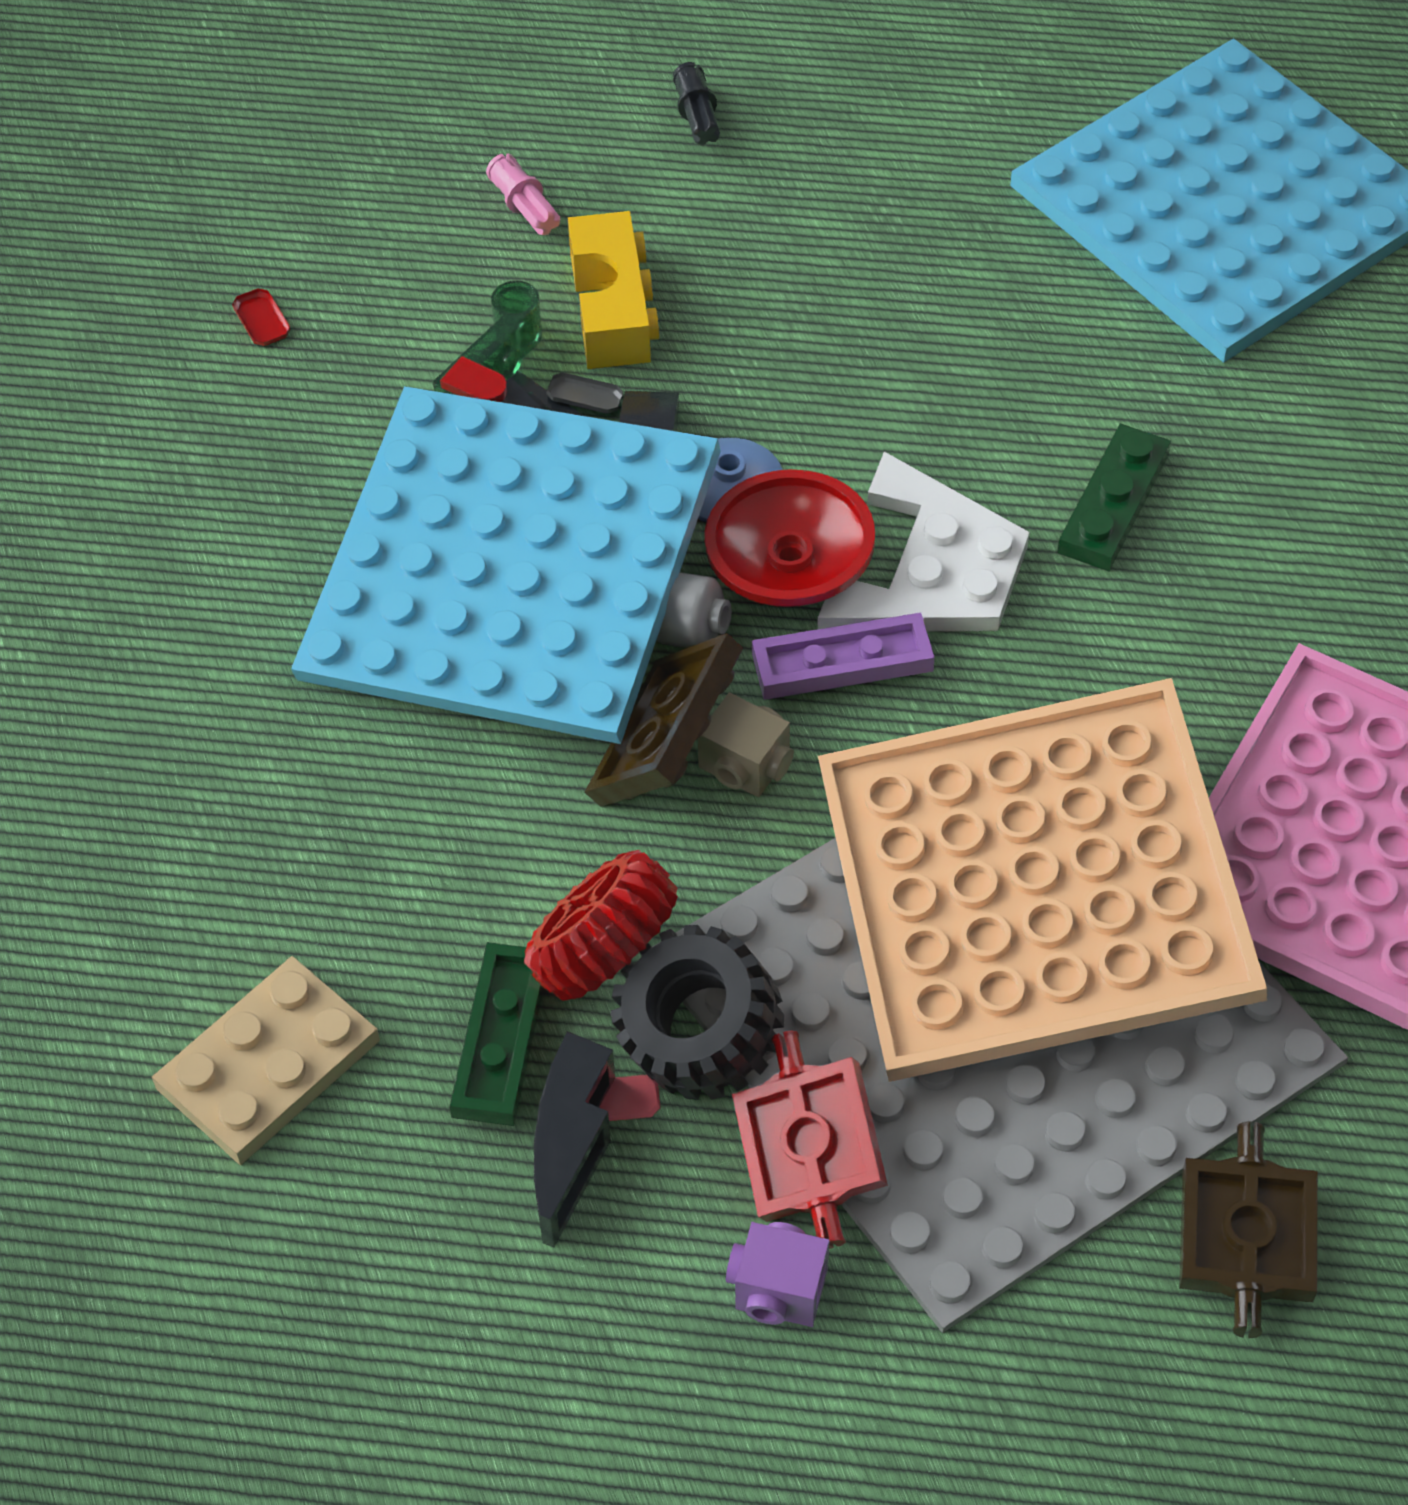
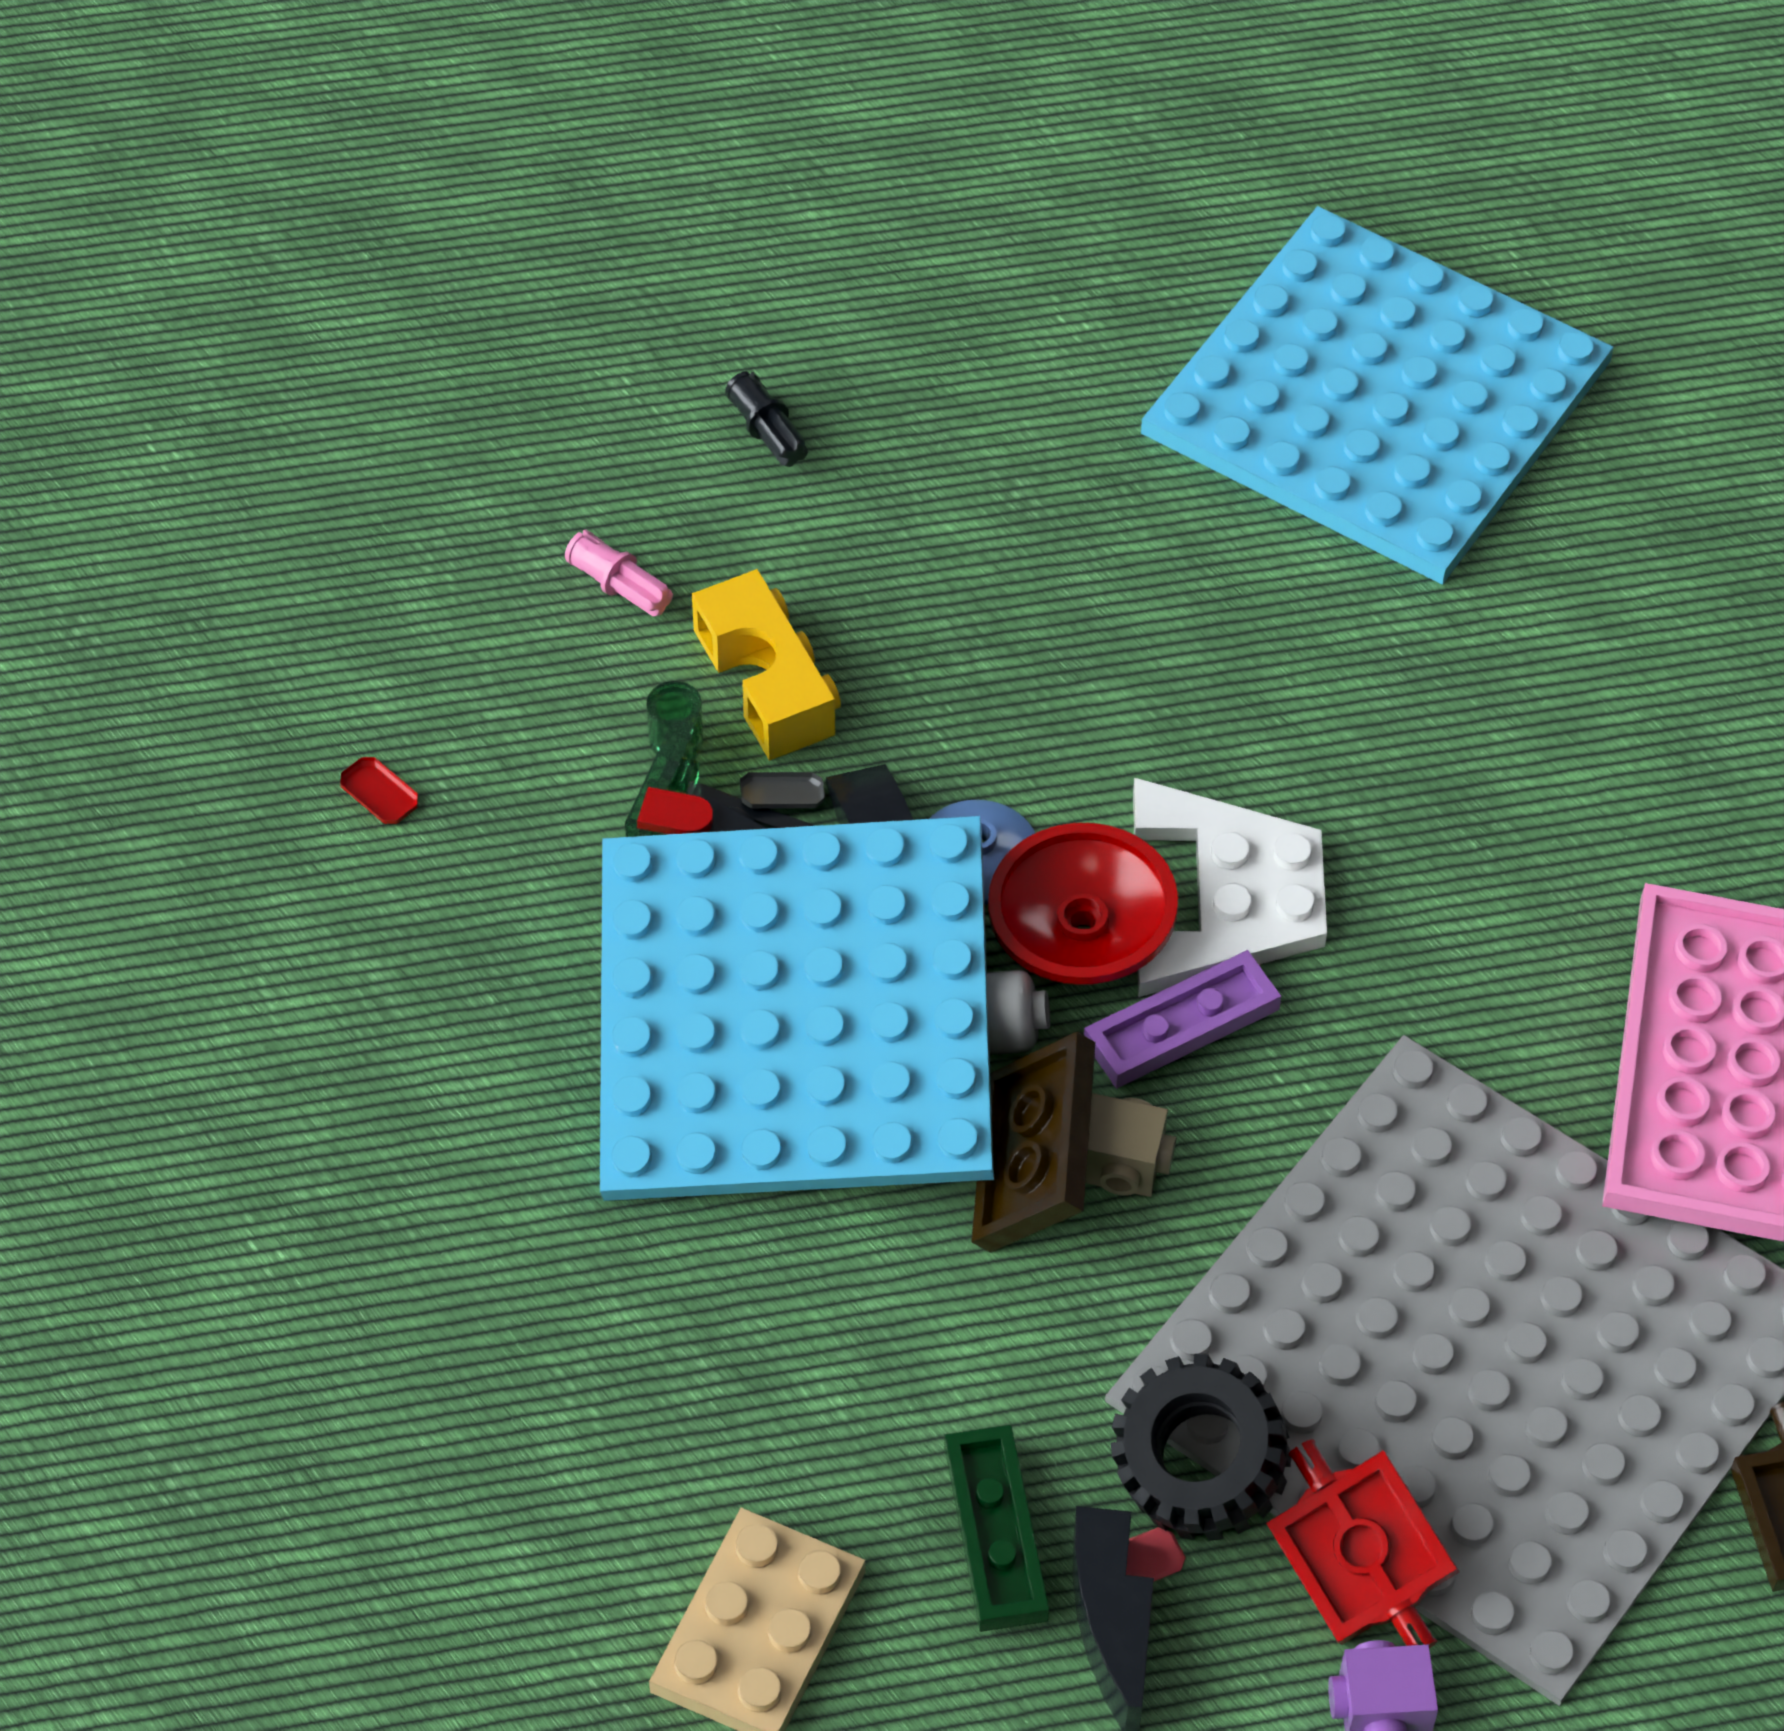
camera: 20 degrees left, 0 degrees up
(601, 925) = (1068, 1383): red gear -> none
(1037, 880) = (1486, 1210): light nougat plate -> none
(1114, 497) = (1390, 767): dark green plate -> none

